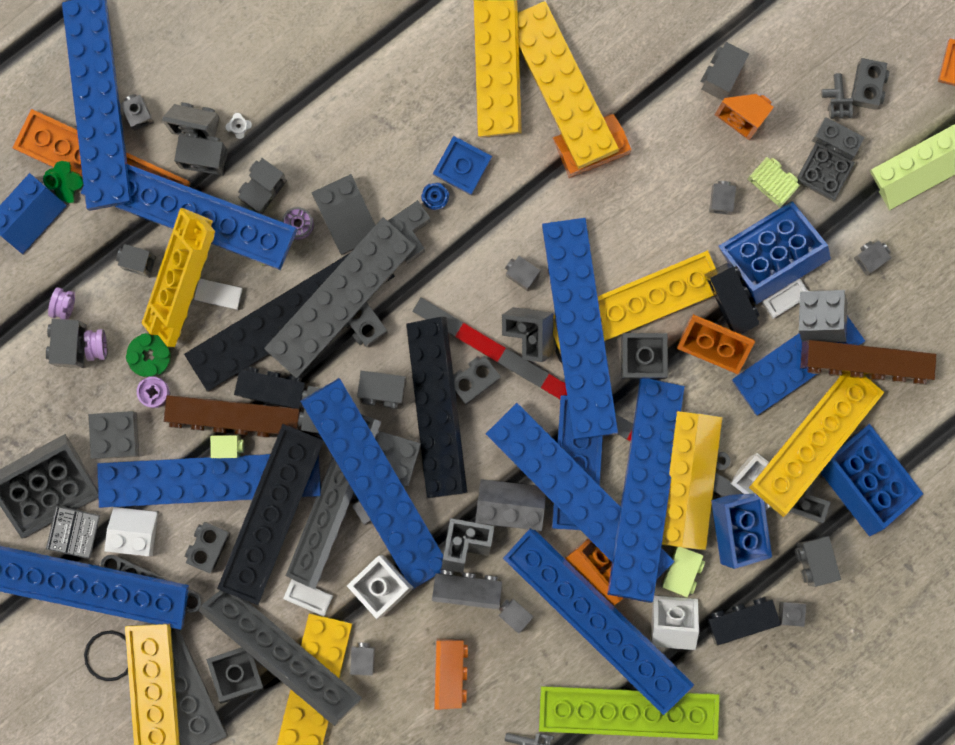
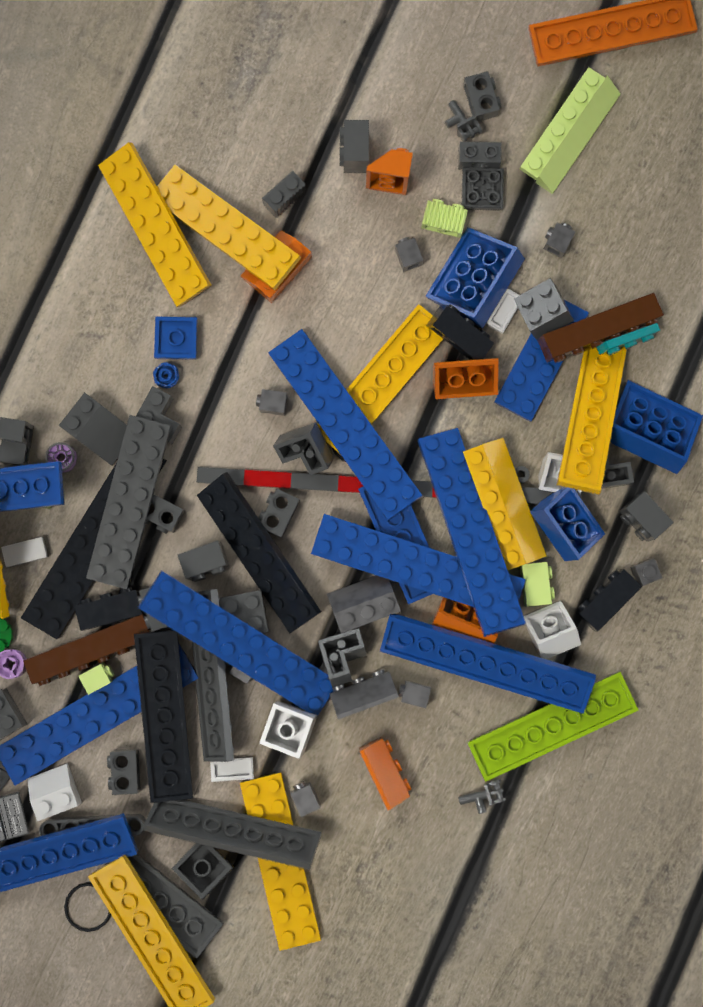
camera: 25 degrees left, 0 degrees up
(633, 81) = (284, 194): none -> dark grey brick
(644, 356) = (411, 419): dark grey brick -> none
(889, 386) = (628, 340): none -> teal plate

